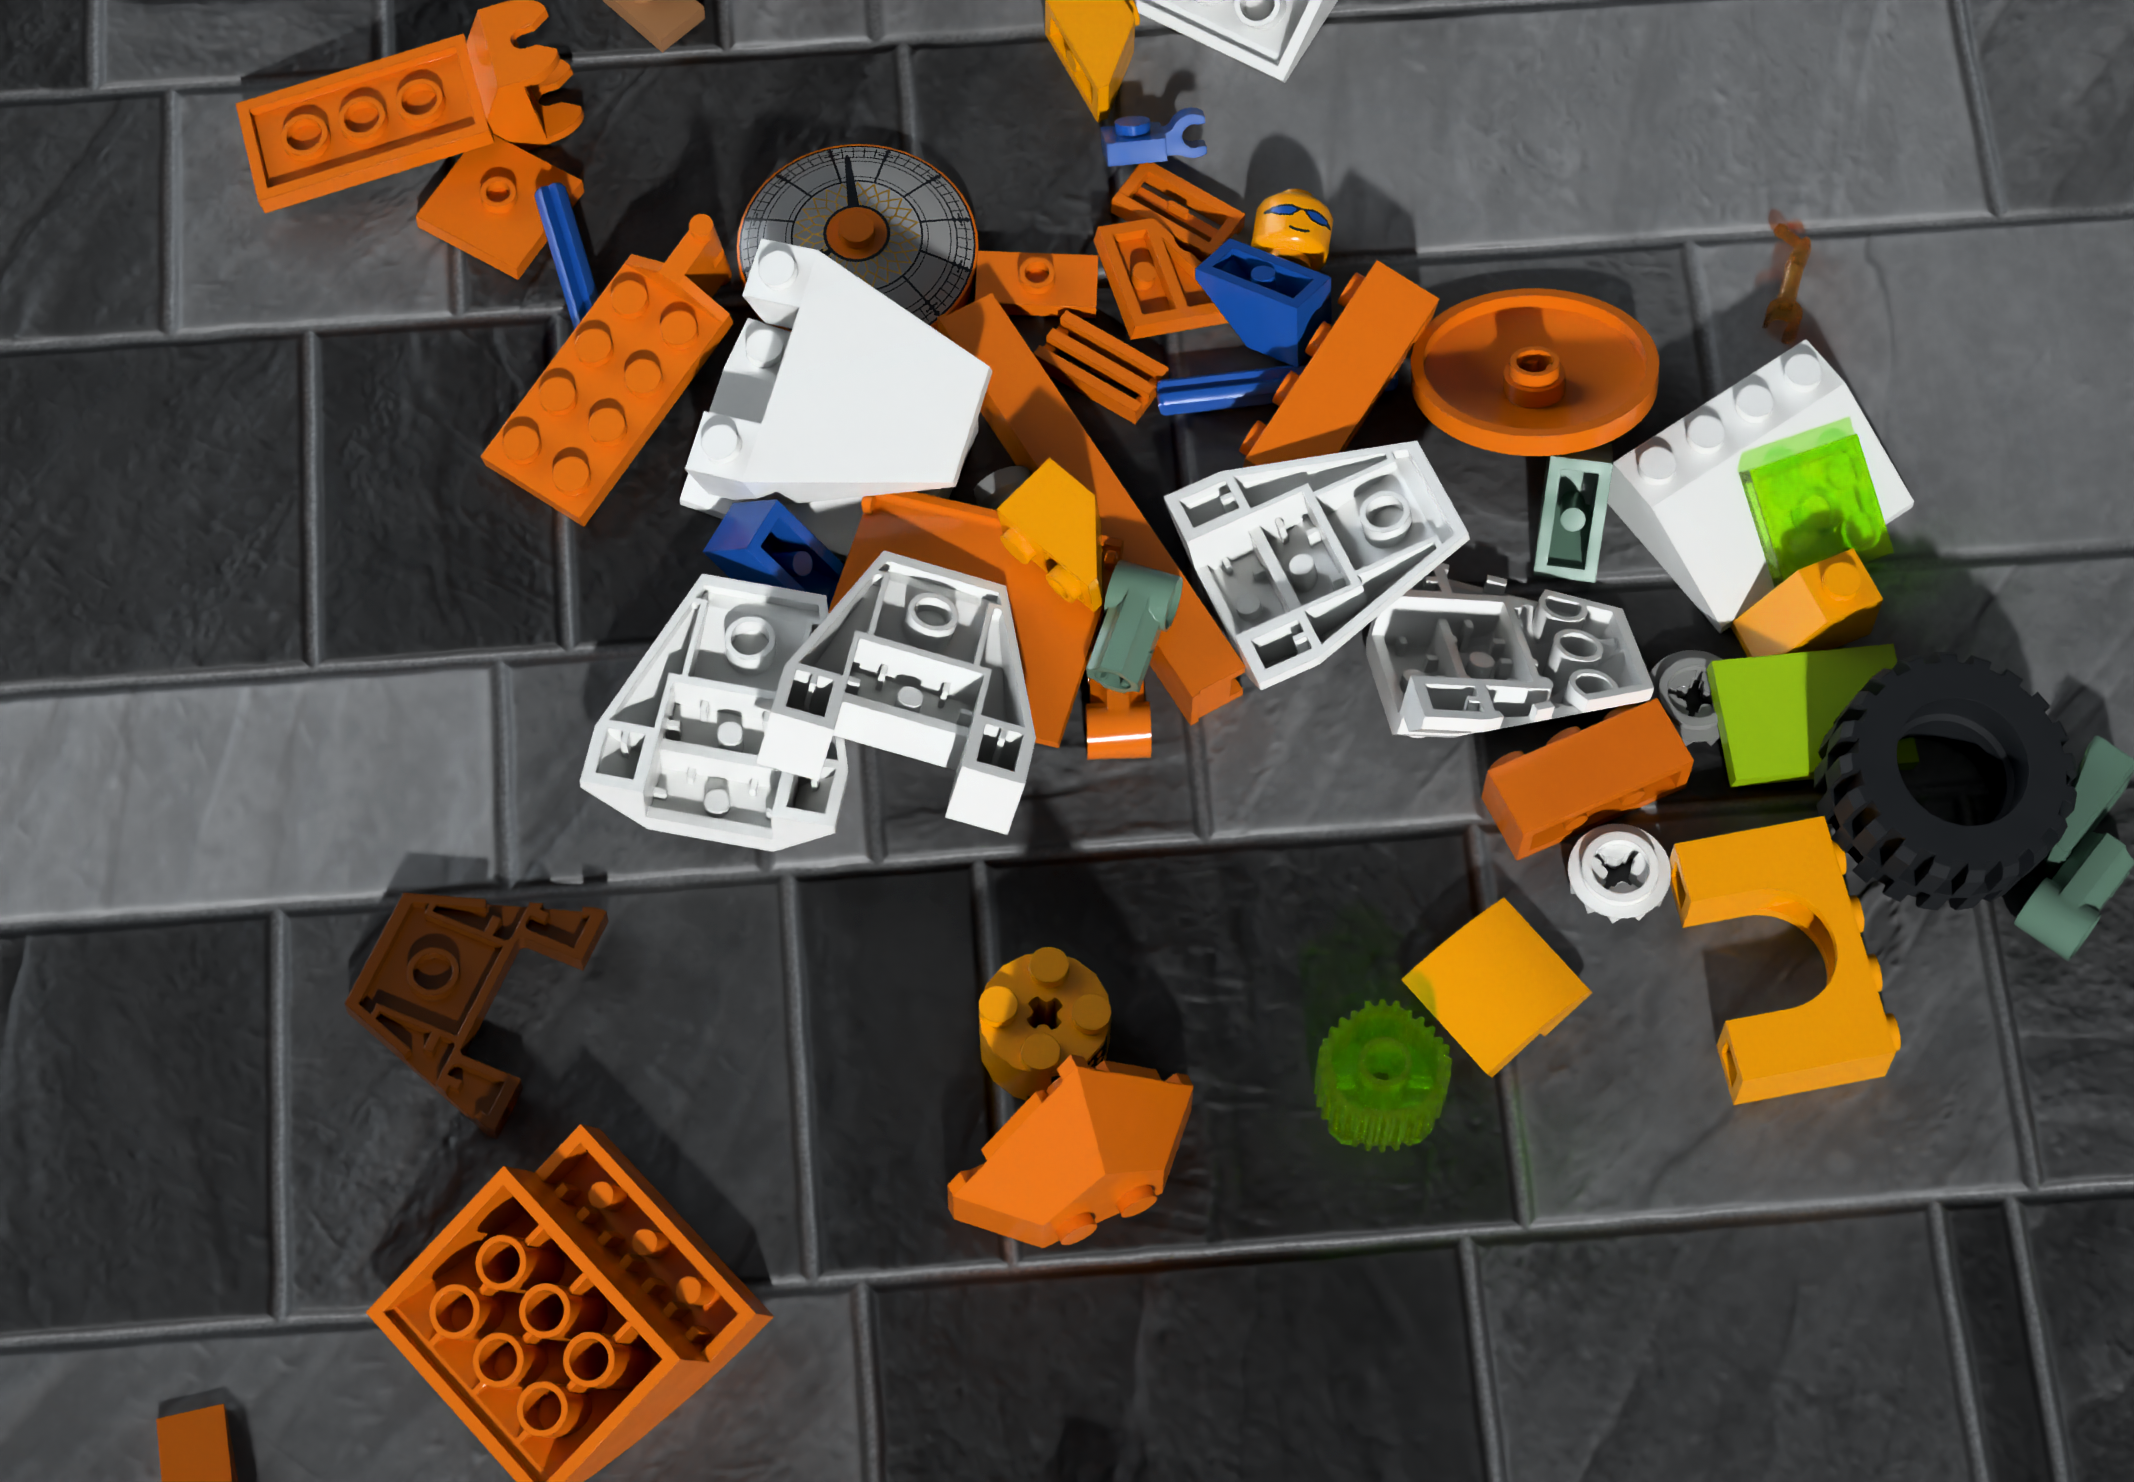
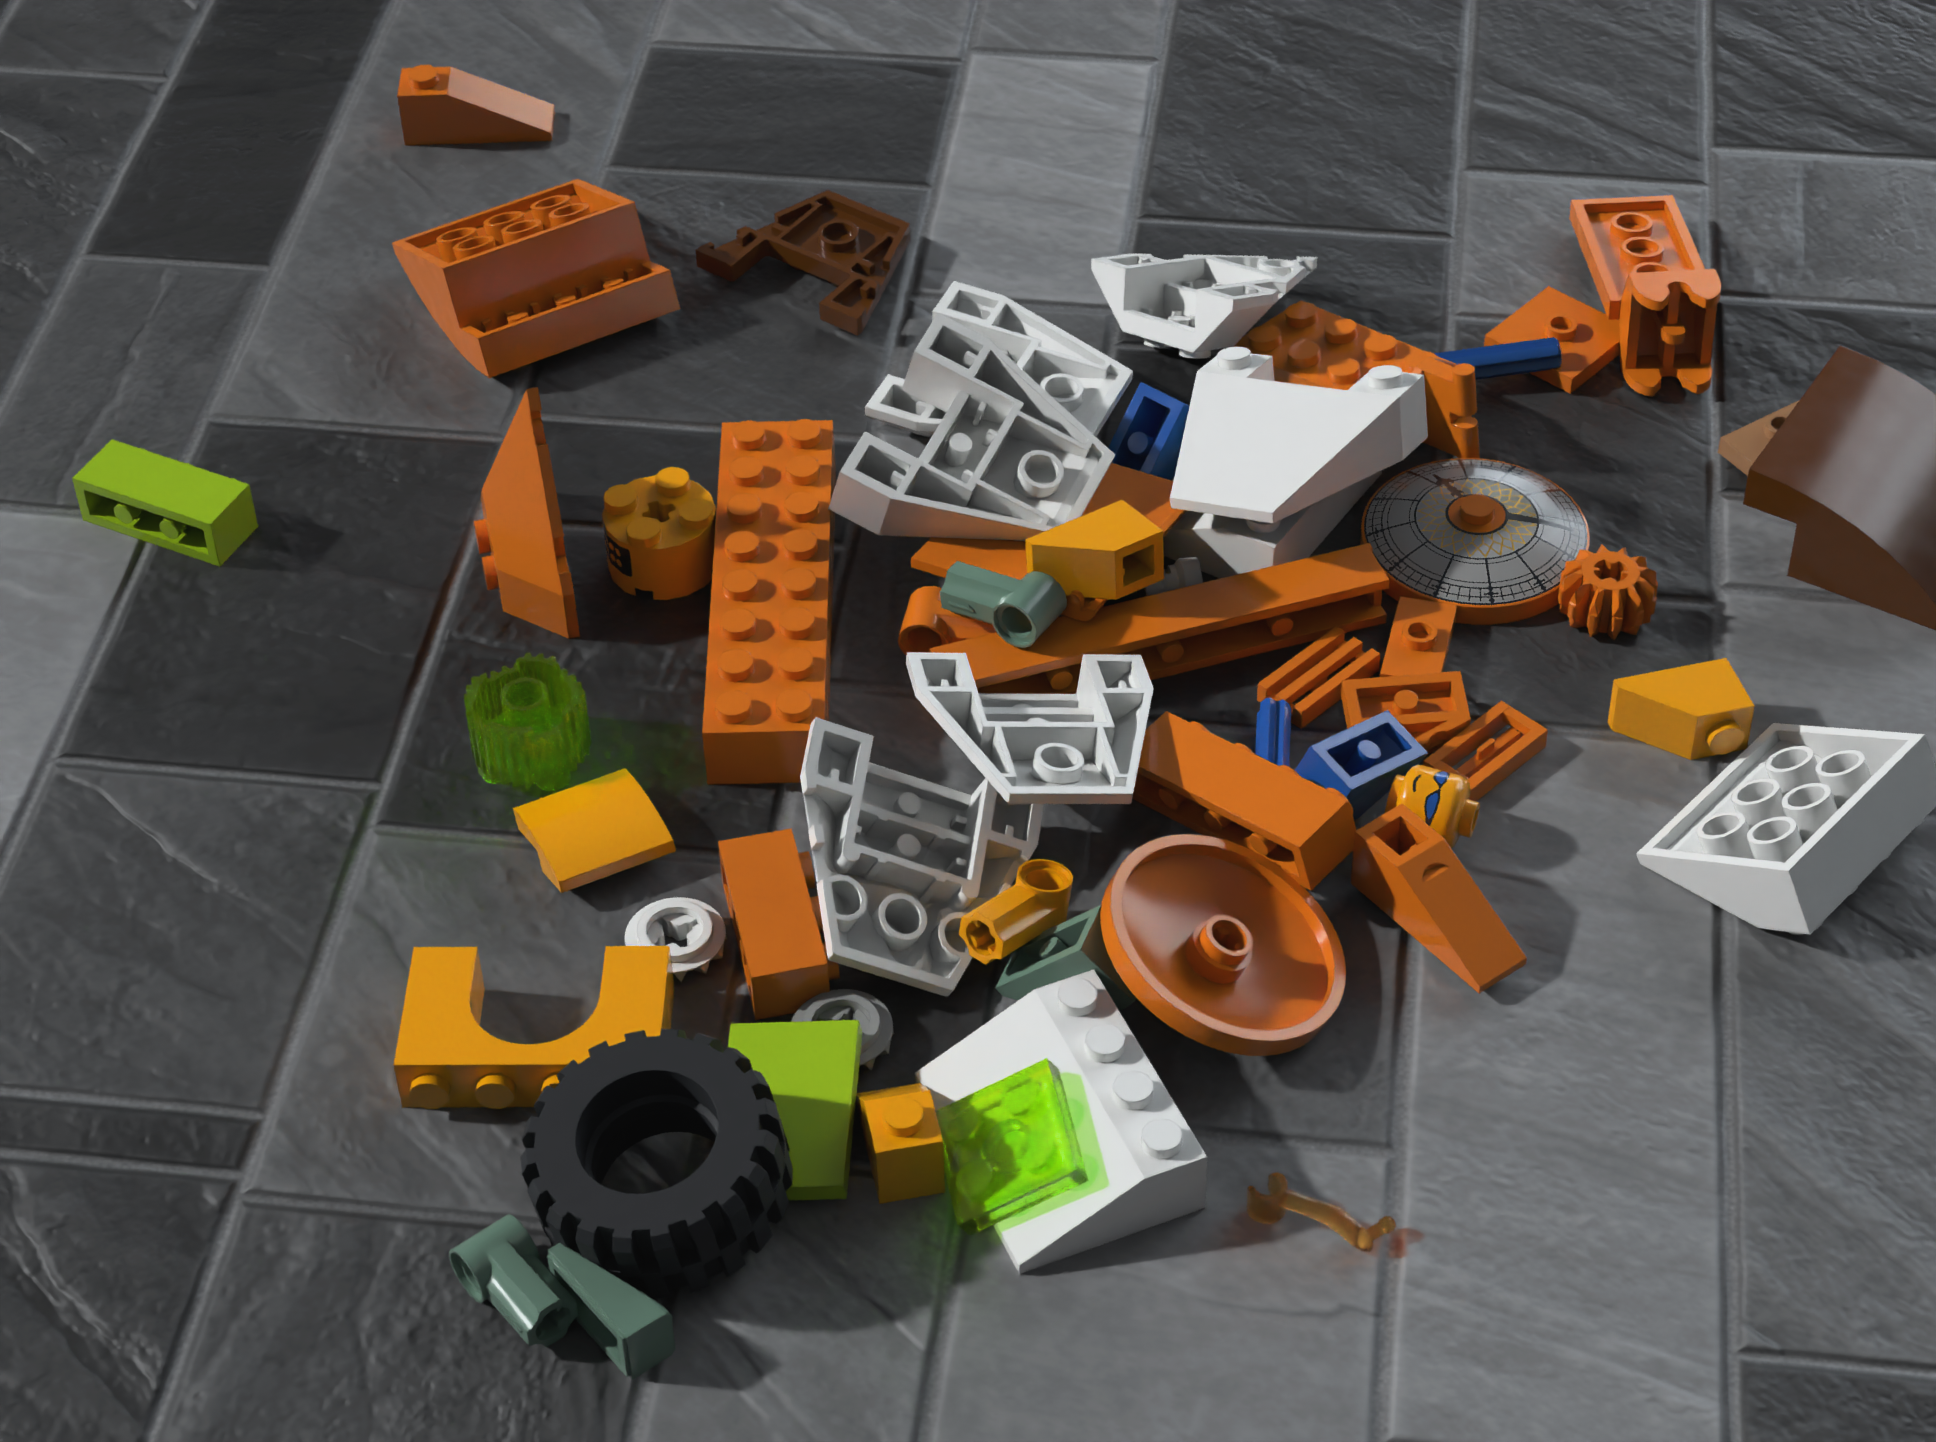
camera: 105 degrees right, 20 degrees down
(522, 528) = (1195, 299): none -> white wedge
(936, 118) = (1608, 592): none -> orange gear
(1118, 886) = (769, 600): none -> orange brick
(1141, 141) = (1565, 726): plate -> none
(1412, 217) = (1433, 897): none -> orange slope
(1530, 554) = (1020, 912): none -> light orange piece

